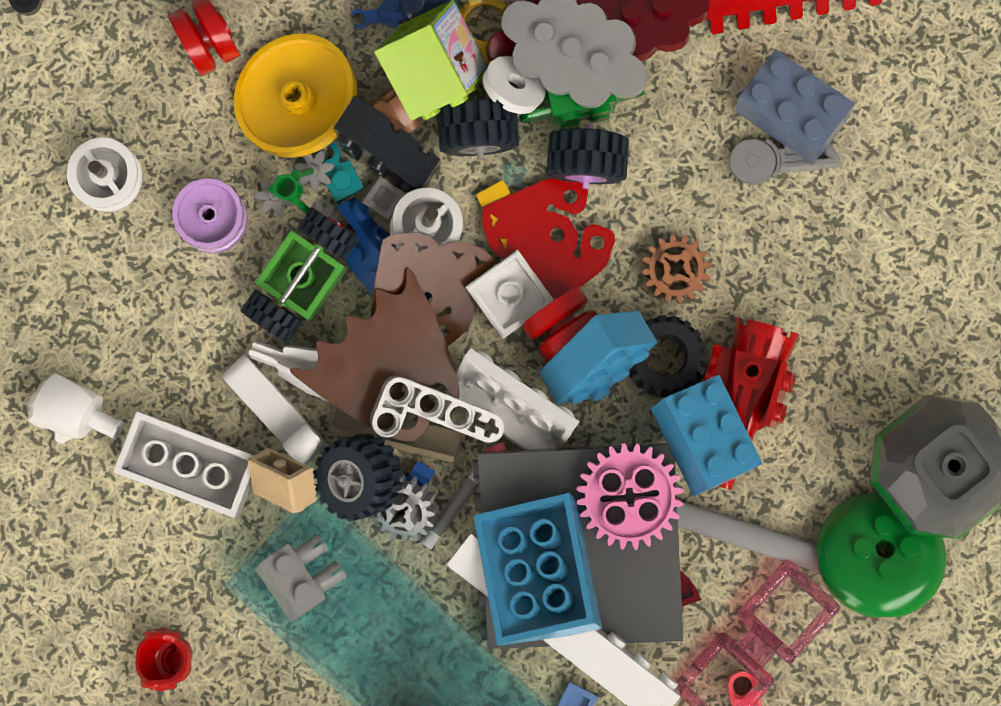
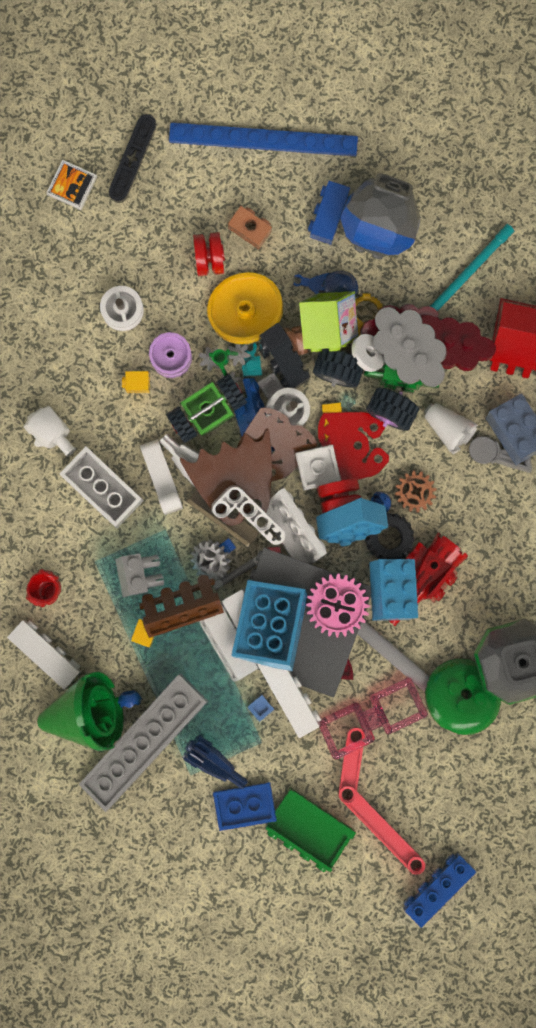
camera: 10 degrees right, 0 degrees up
(175, 279) = (136, 382): none -> yellow brick
(282, 480) = (150, 517): tan brick -> none
(348, 662) = (140, 635): none -> yellow brick
(358, 476) = (192, 532): black wheel -> none
(393, 614) = (184, 614): none -> reddish brown fence
(469, 617) = (222, 635): none -> white brick
(629, 301) = (382, 498): none -> blue plate
(687, 146) = (450, 426): none -> white cone

